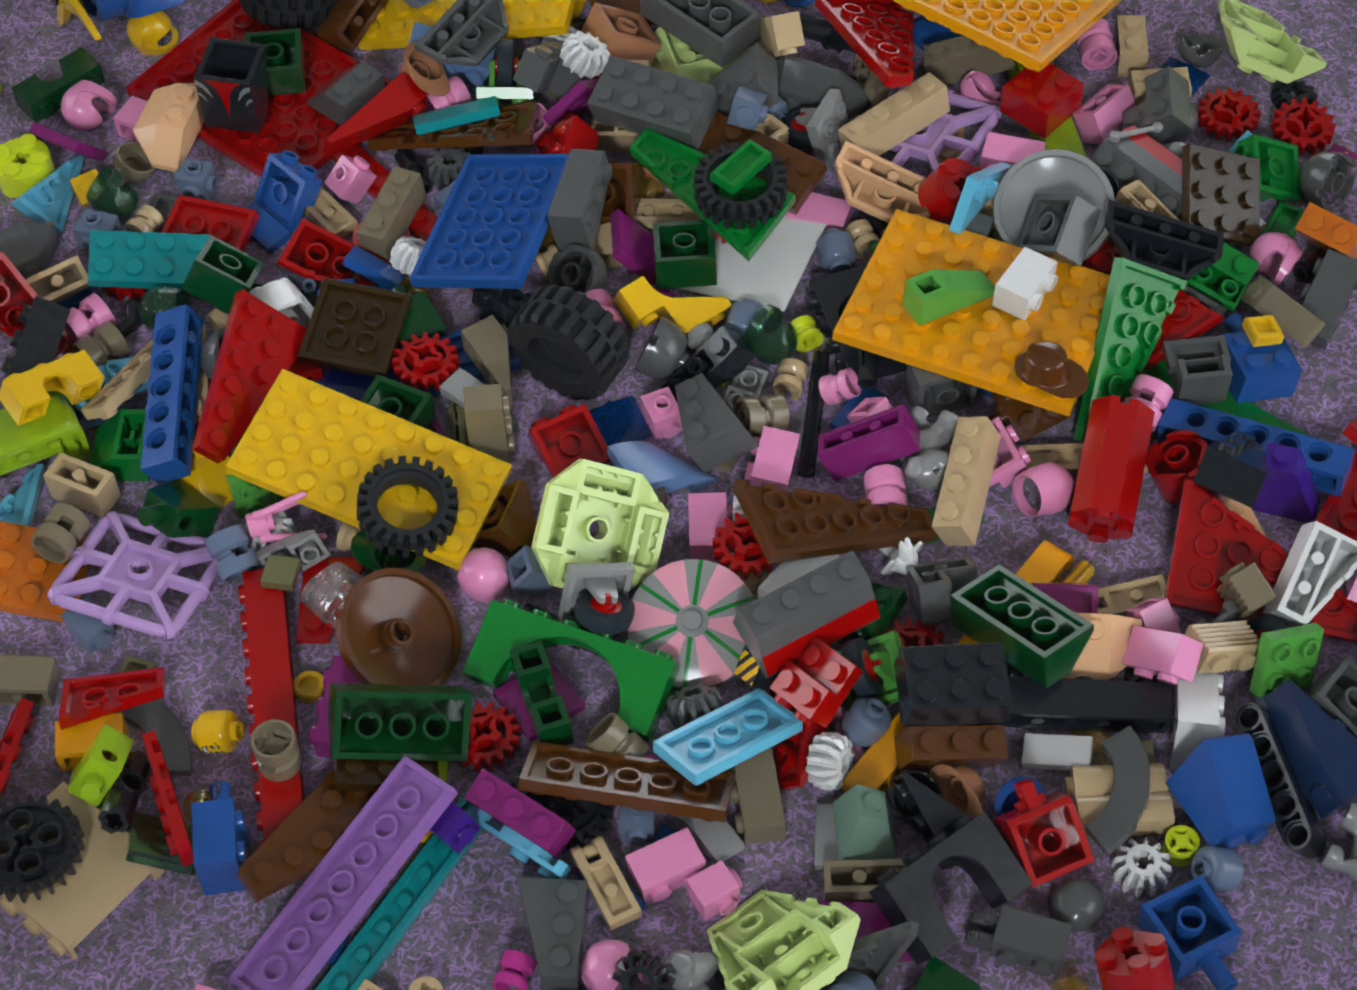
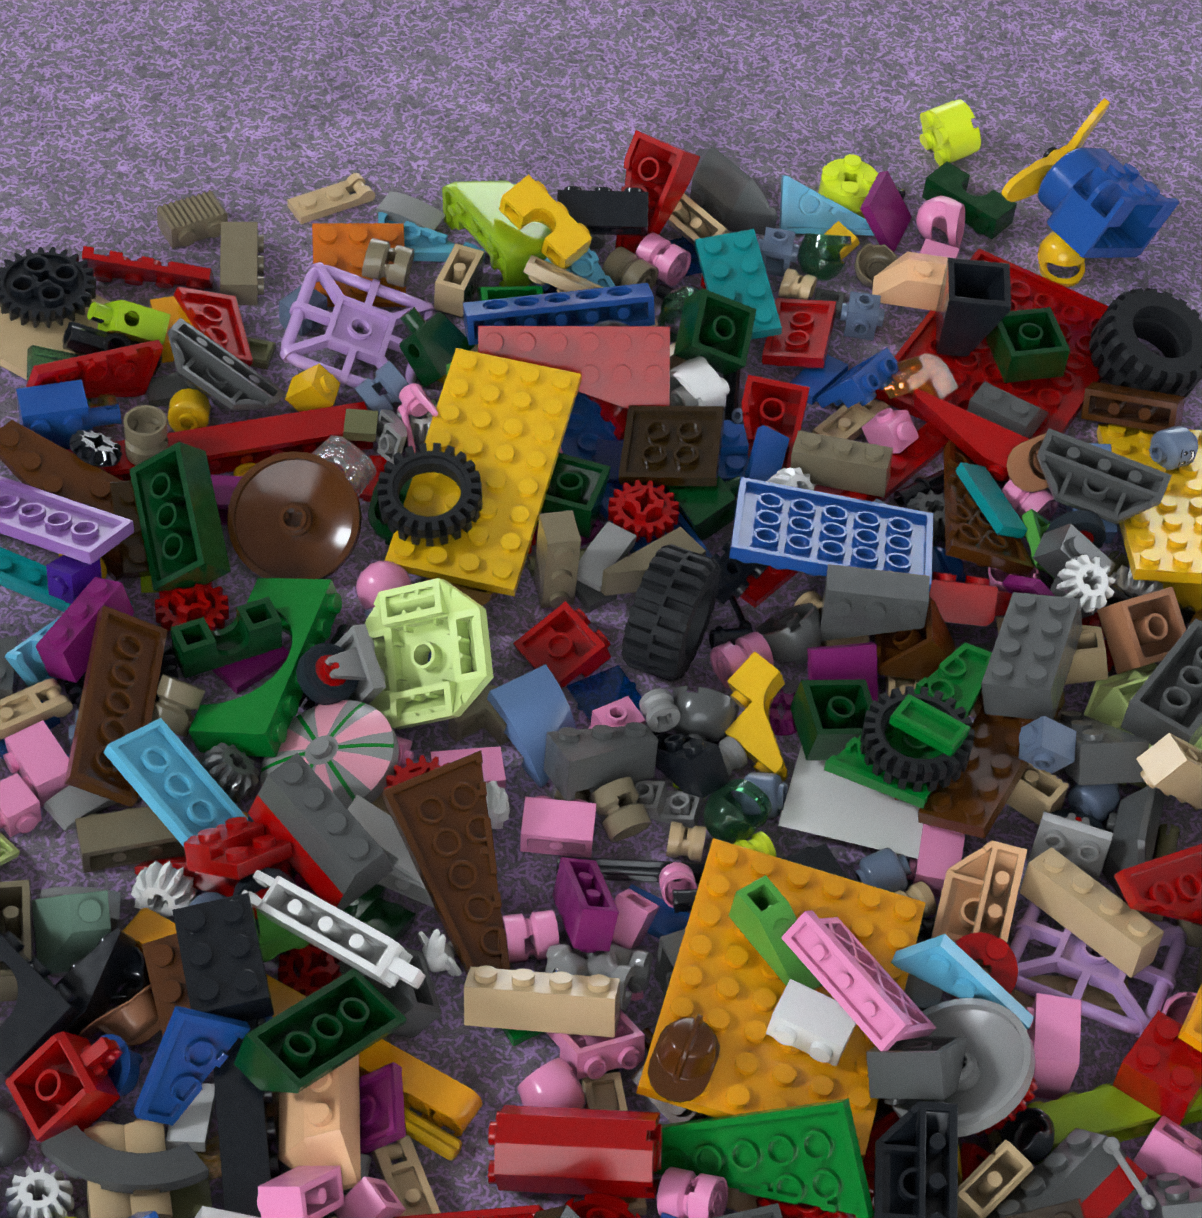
camera: 75 degrees right, 5 degrees down
(186, 689) = (219, 373): none -> dark grey wedge
(214, 617) = (312, 389): none -> yellow brick
(280, 800) = (95, 448): none -> black gear
(309, 139) = (925, 373): none -> clear orange brick
(665, 371) = (659, 710): none -> light grey wheel
(926, 599) = (335, 932): none -> white hinge
(998, 244) = (856, 980): none -> bright pink fence
(1030, 712) = (186, 1056): none -> blue wing

